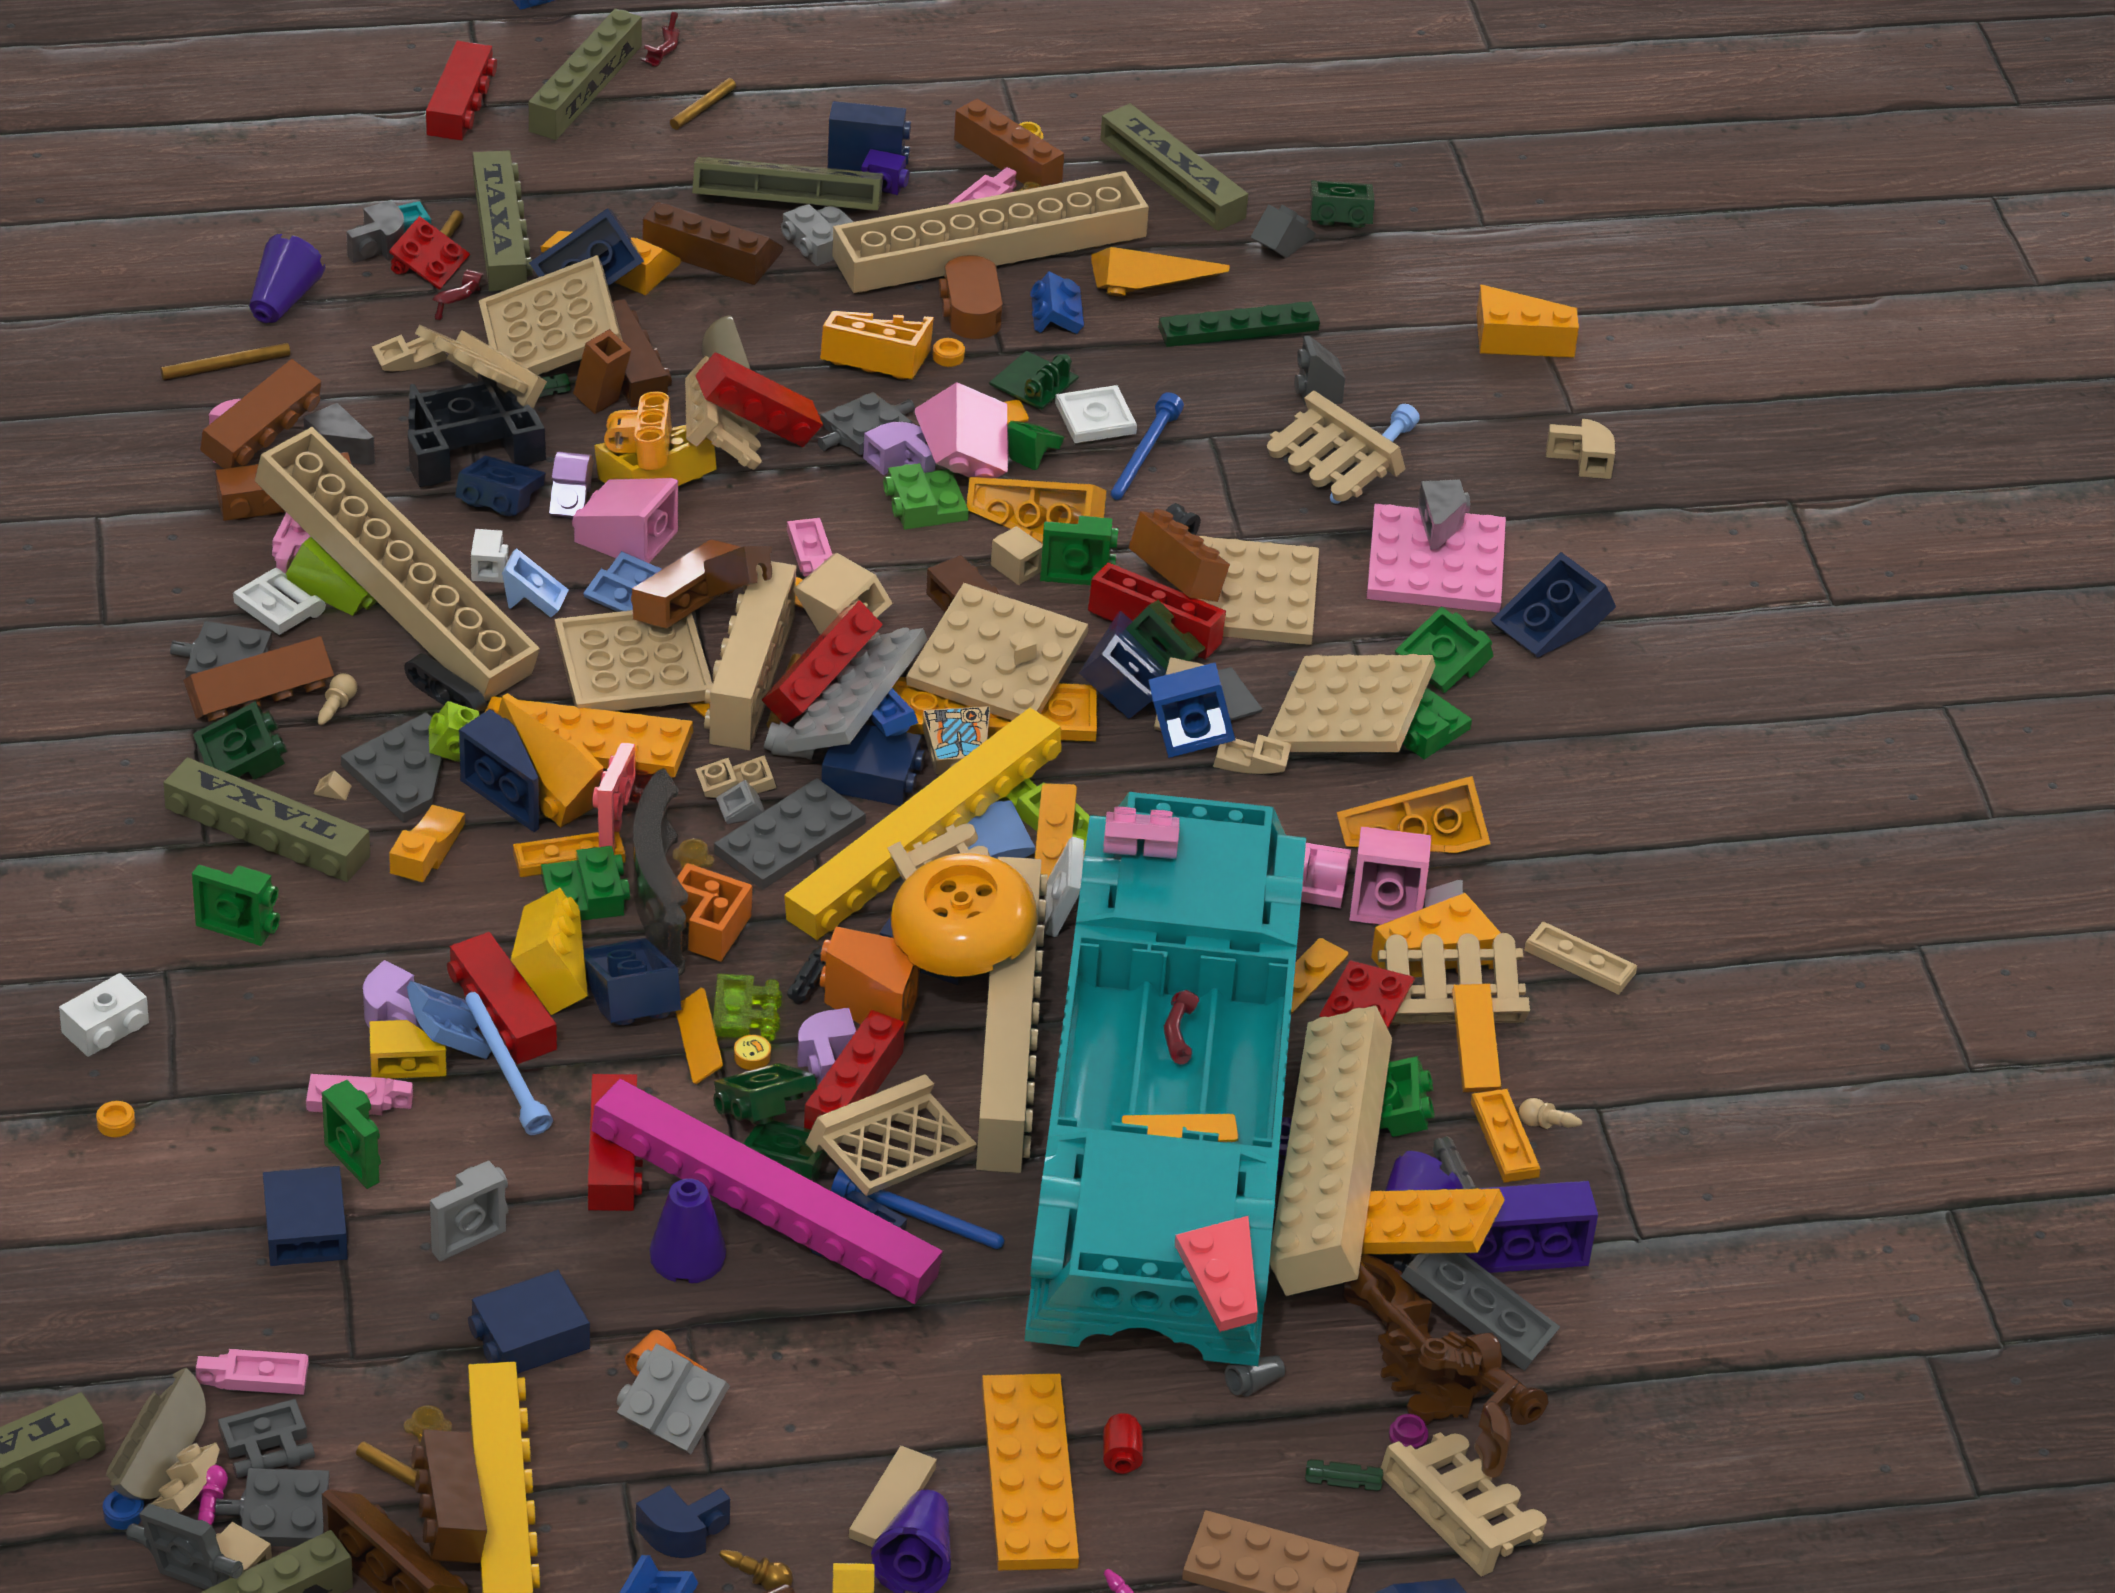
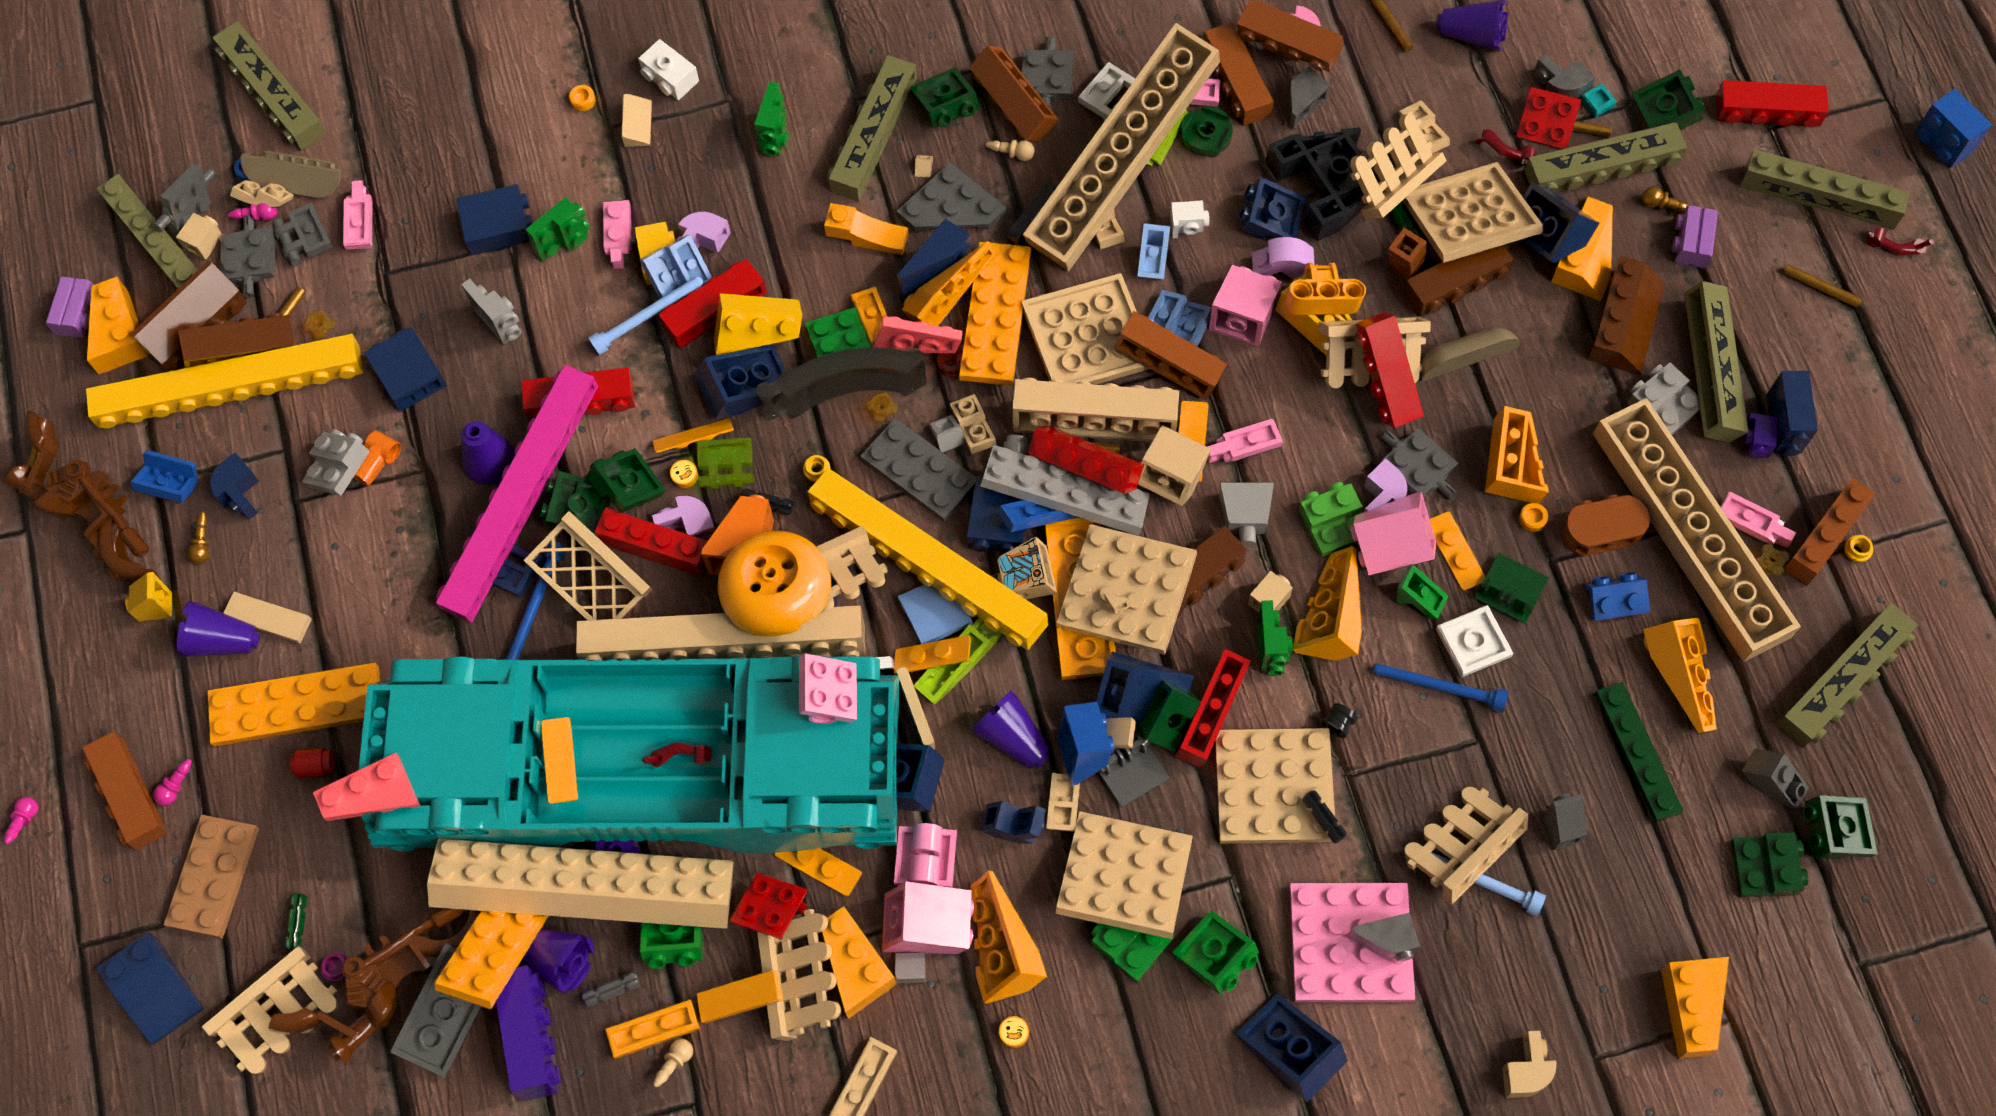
camera: 90 degrees right, 25 degrees up
(176, 1063) = (636, 121): none -> tan slope
(439, 160) = (1669, 102): none -> dark green plate
(445, 729) = (983, 220): lime brick -> none
(562, 192) = (1655, 197): none -> pearl gold bar
(621, 173) = (1695, 236): none -> medium lavender brick
(715, 910) = (810, 428): orange brick -> none
(736, 569) = (1164, 378): reddish brown hinge -> none
(770, 923) = (812, 462): none -> yellow plate
(903, 557) = (1246, 509): none -> light grey torso
(1160, 771) = (1013, 732): none -> dark purple cone
(1179, 555) = (1272, 717): dark orange brick -> none
(1248, 1379) = (388, 857): dark grey cone -> none
(1280, 780) = (1013, 823): none -> dark blue brick
(1297, 542) = (1324, 817): none -> black axle
(1376, 256) = (1769, 865): none -> dark green plate
(1524, 826) = (1014, 1032): none -> tile

